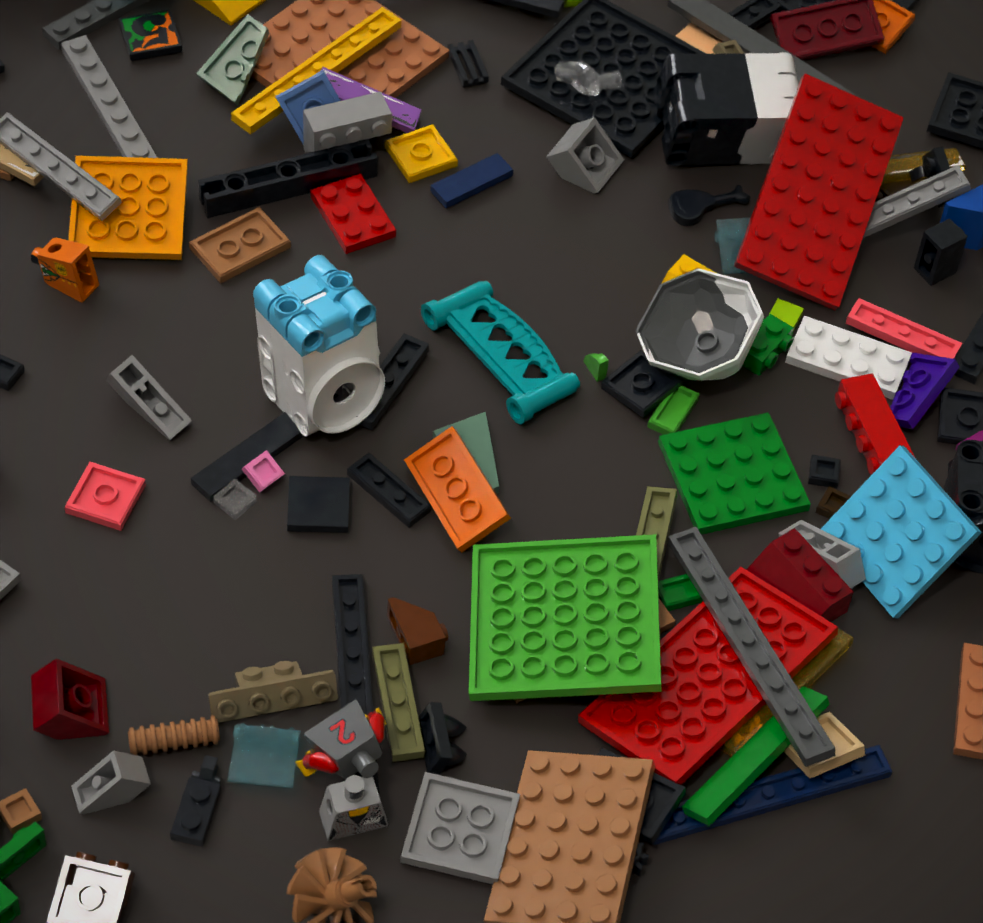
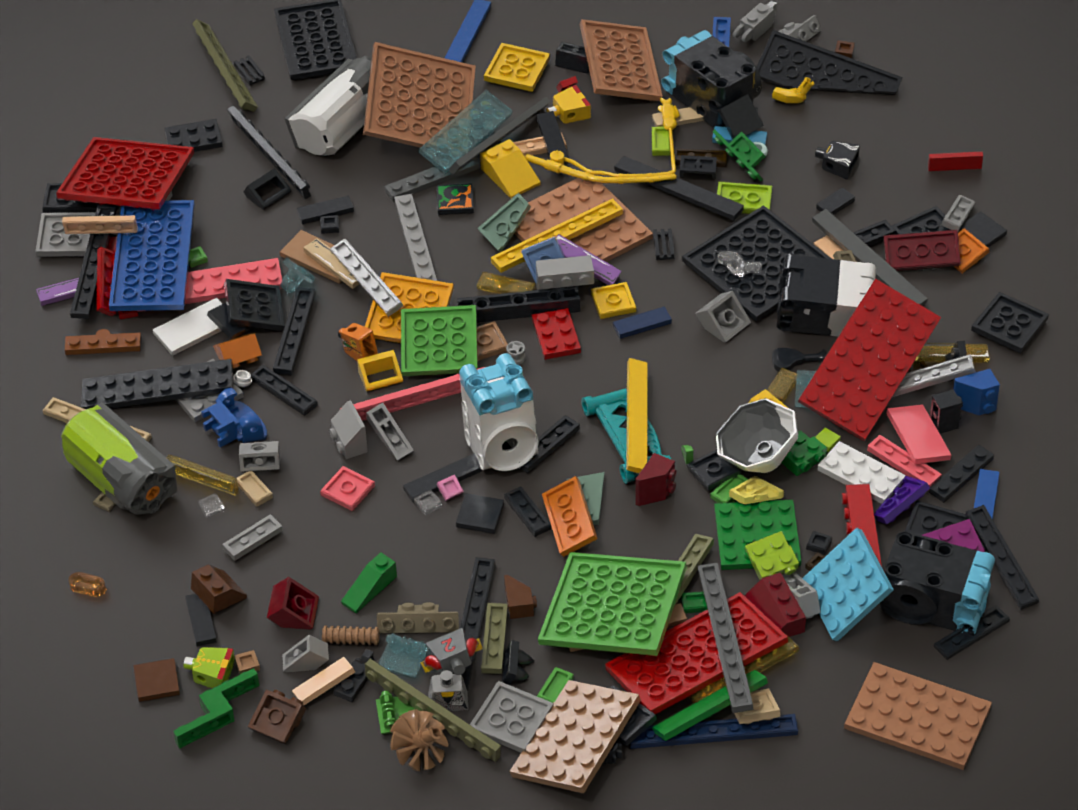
camera: 20 degrees right, 5 degrees down
(88, 406) = (349, 431): none -> light grey slope
(103, 294) = (376, 364): none -> yellow tile
(151, 821) = (323, 681): none -> light nougat tile
(163, 340) = (412, 396): none -> coral plate
(181, 644) = (370, 582): none -> green slope
(187, 247) = (438, 340): none -> bright green plate
(255, 151) = (502, 284): none -> clear yellow tile
(277, 850) = (389, 710): none -> bright green hinge
(303, 248) = (517, 351): none -> light grey wheel
(324, 834) = (419, 701): none -> olive plate
(511, 762) = (555, 684): none -> bright green tile
(512, 322) = (636, 415): none -> yellow tile
(570, 413) = (655, 480): none -> dark red slope
(698, 241) = (782, 384): none -> clear yellow tile
(713, 408) = (755, 491): none -> light yellow wing
(771, 505) = (772, 556): none -> lime plate
(911, 289) = (918, 434): none -> coral tile

